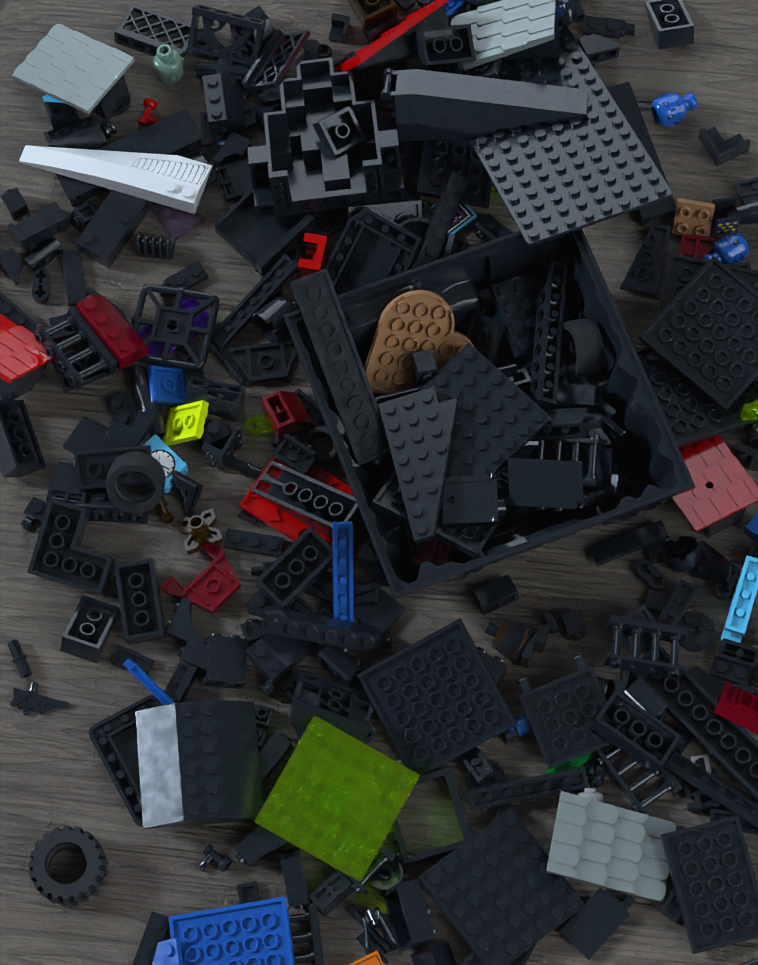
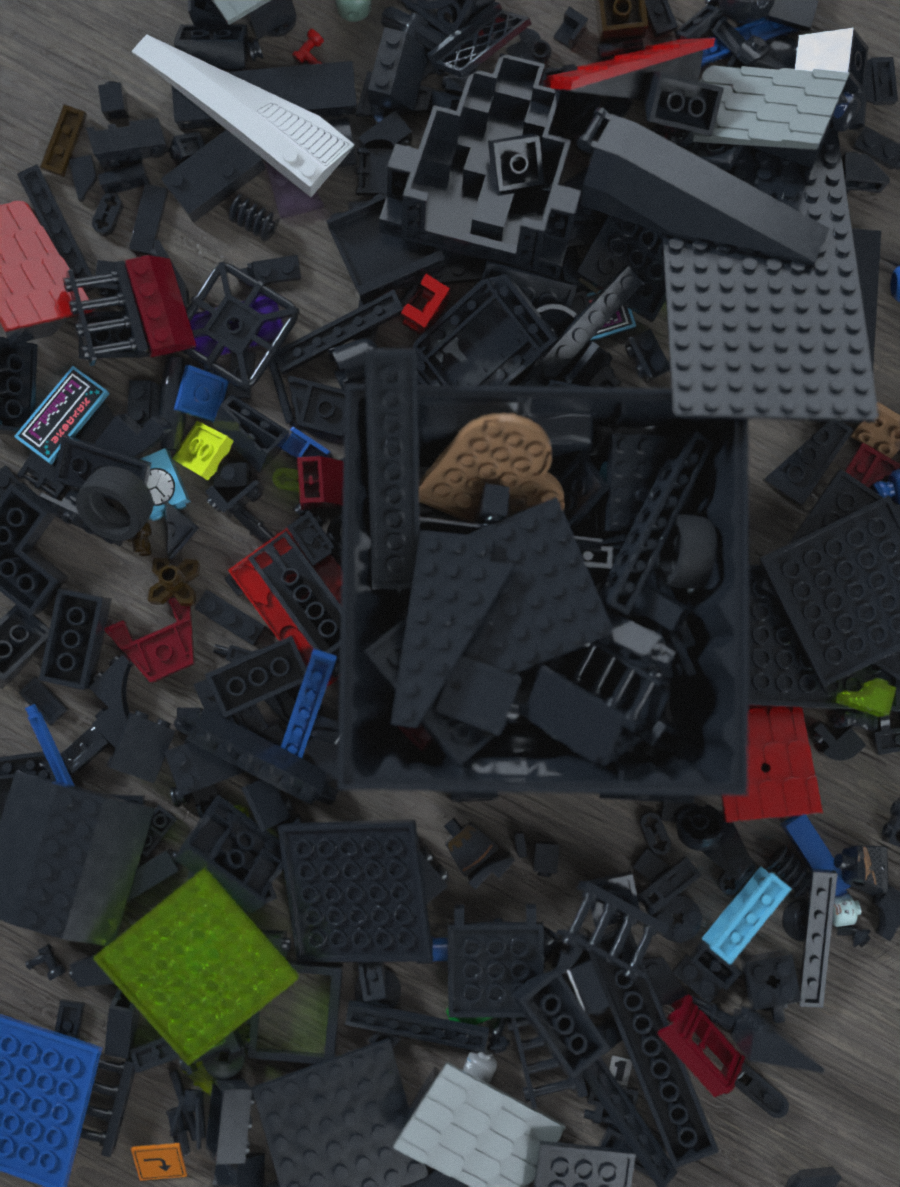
camera: 20 degrees right, 15 degrees up
(64, 438) = (62, 414): none -> tile
(256, 391) = (303, 446): none -> blue panel

